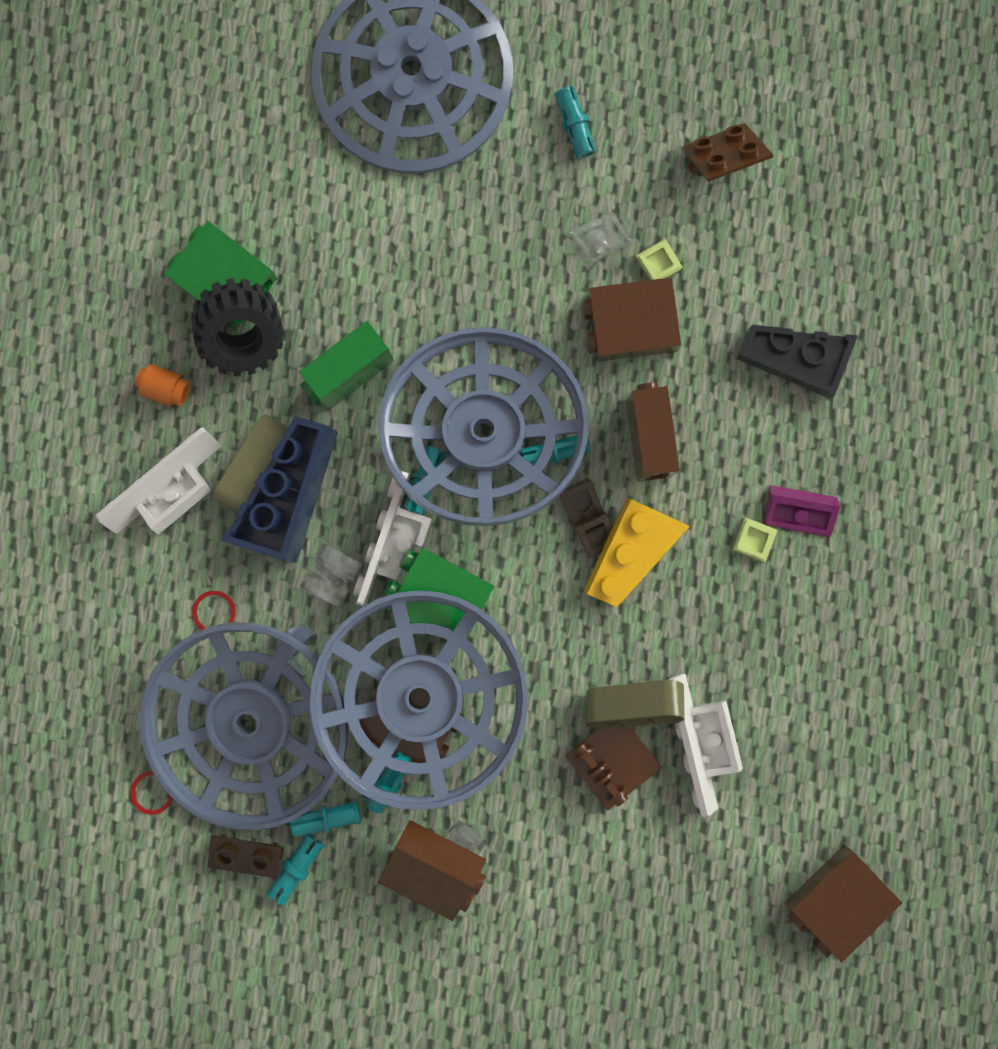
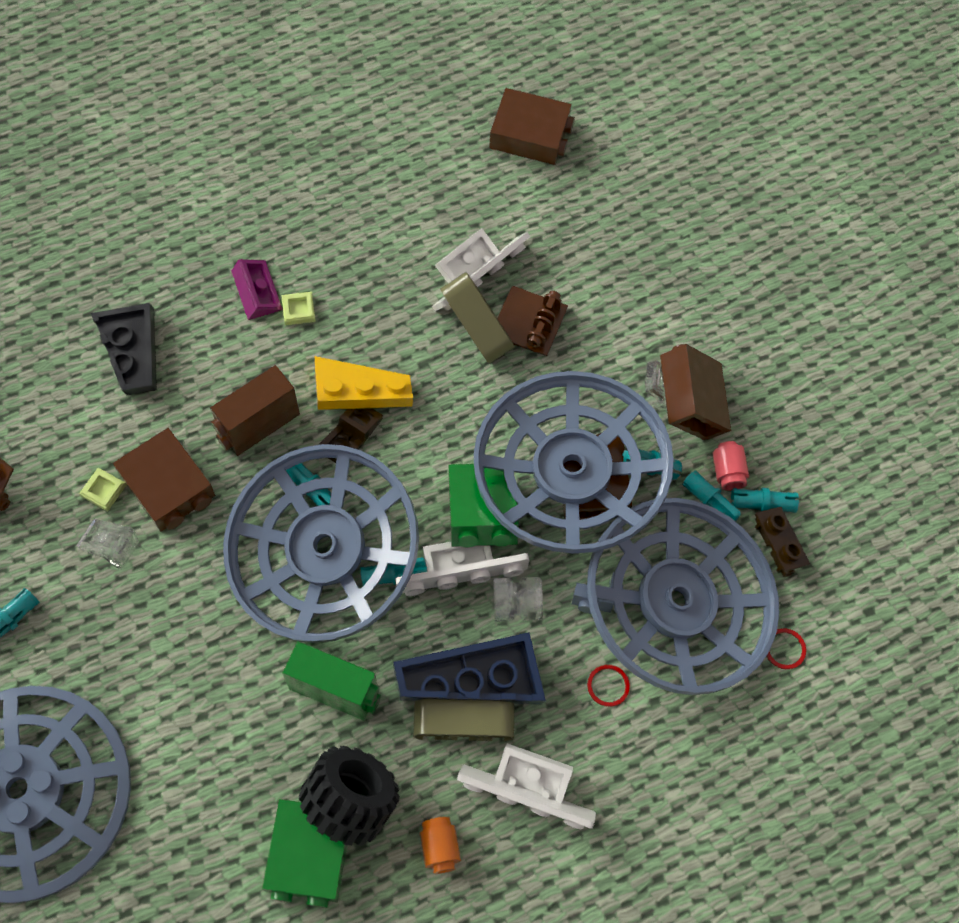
camera: 125 degrees left, 20 degrees down
(345, 858) = (730, 465): none -> coral brick

